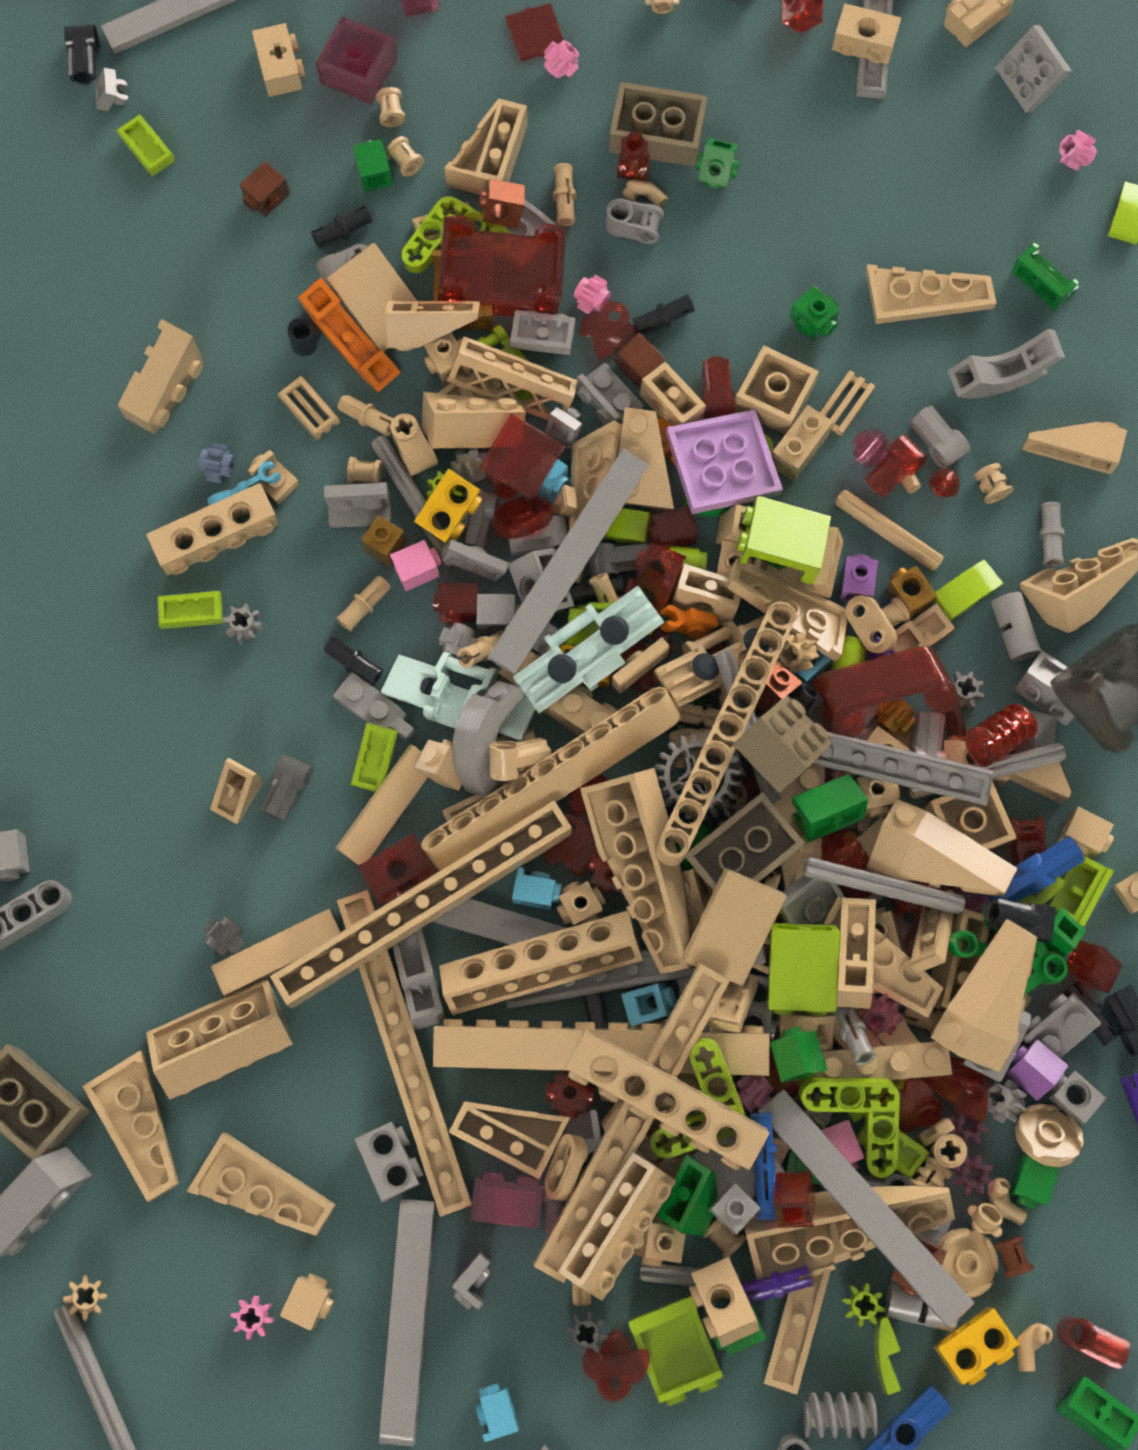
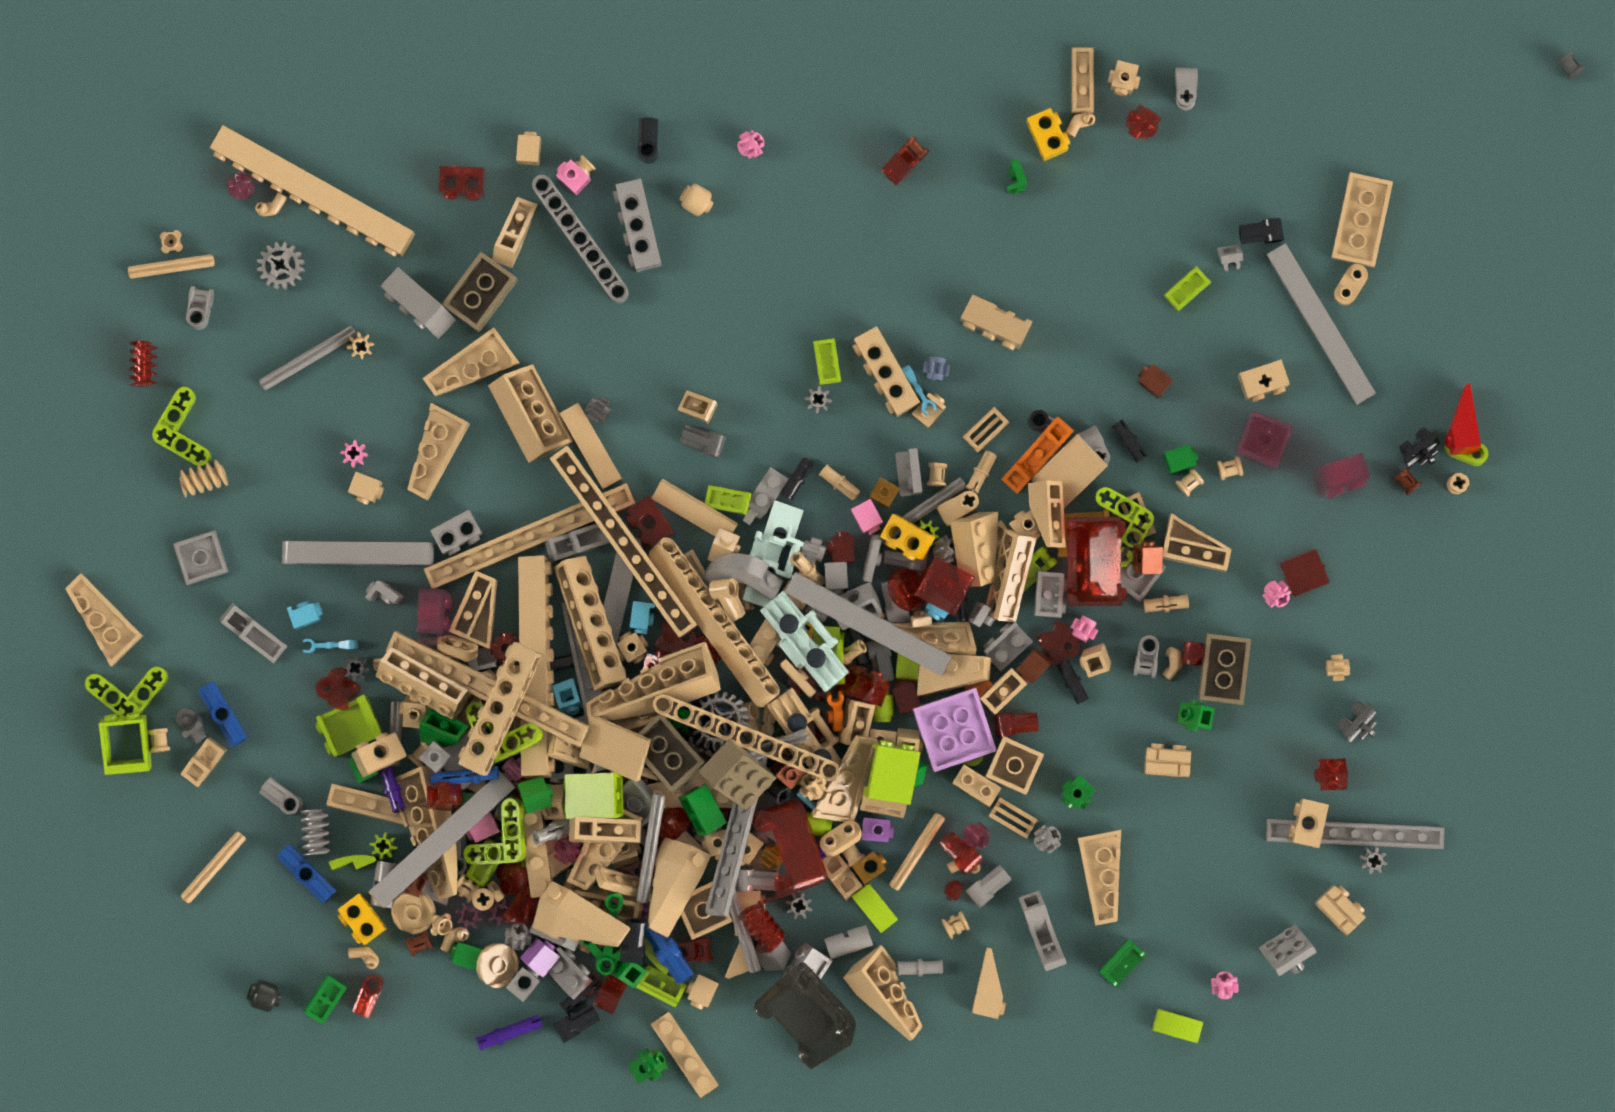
camera: 90 degrees right, 10 degrees up
(548, 1348) = (347, 644): none -> medium azure piece
(636, 280) = (1095, 660): none -> tan brick
(777, 203) = (1167, 762): none -> tan brick
(877, 357) = (1047, 838): none -> light grey gear

